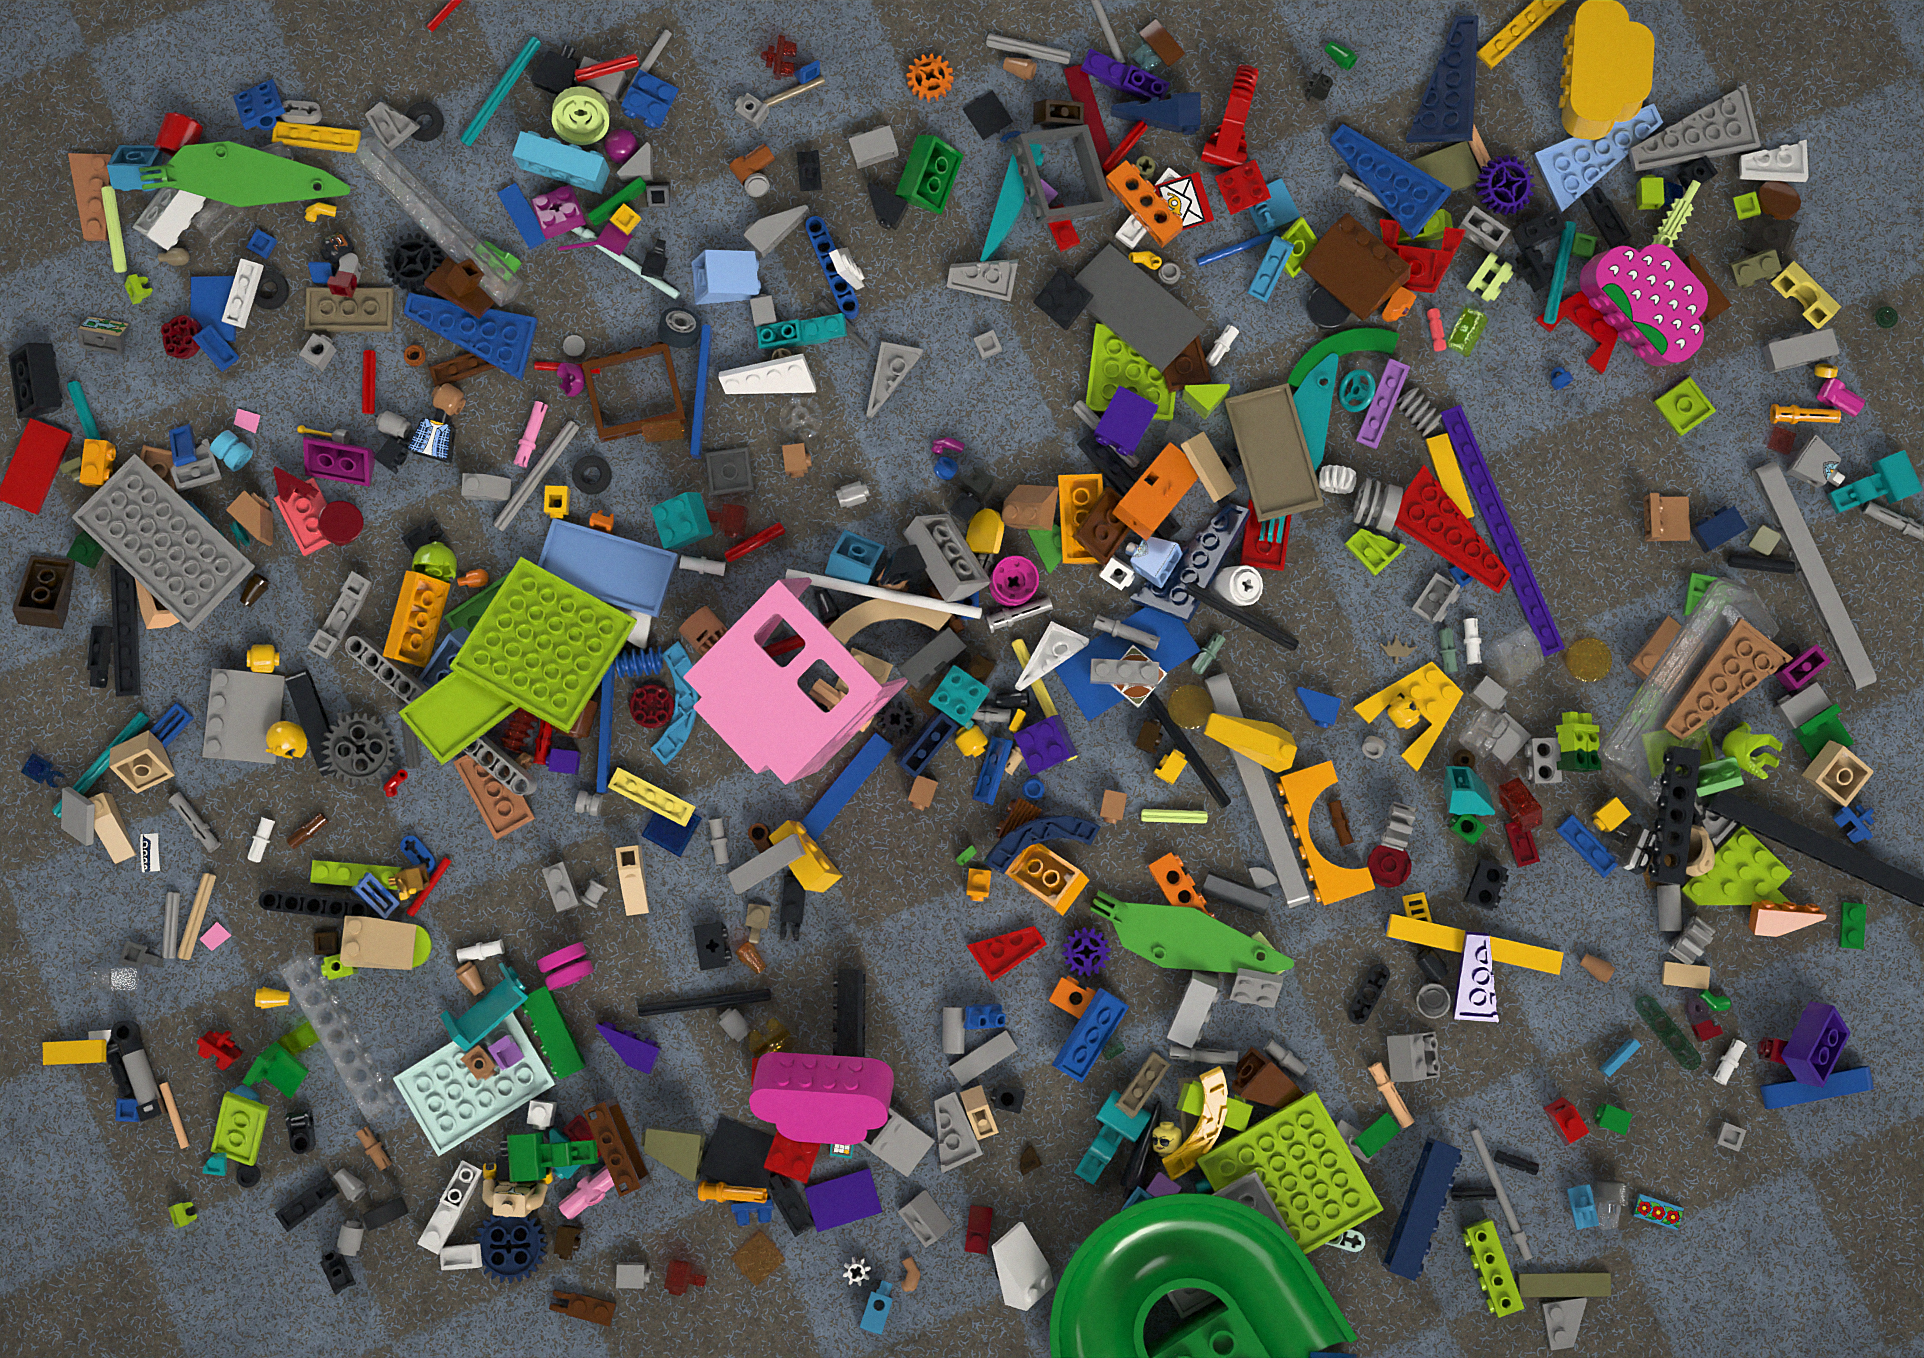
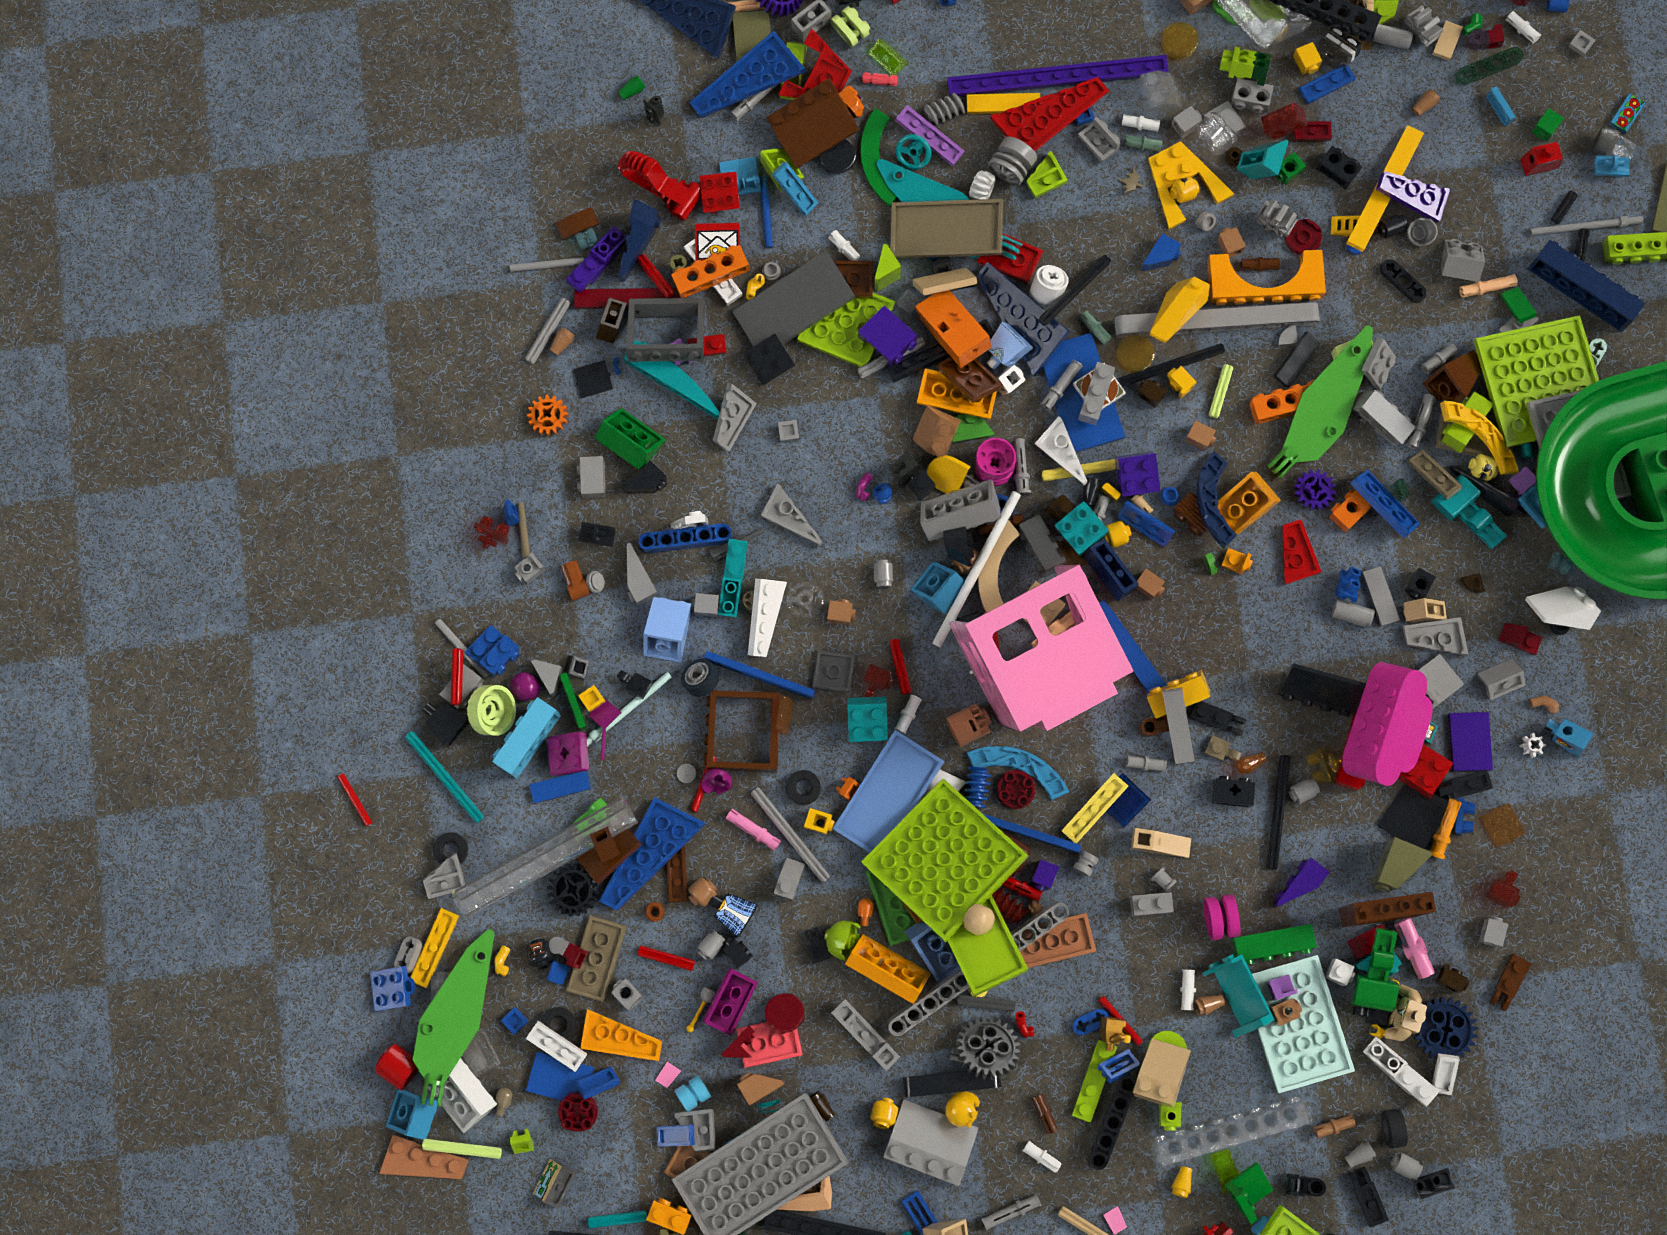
camera: 75 degrees left, 5 degrees down
(269, 353) = (612, 1037): none -> light orange wing
(326, 943) = (1146, 1123): dark brown tile -> none
(482, 697) = (979, 919): none -> tan hair
(1355, 782) = (1231, 242): none -> medium nougat brick

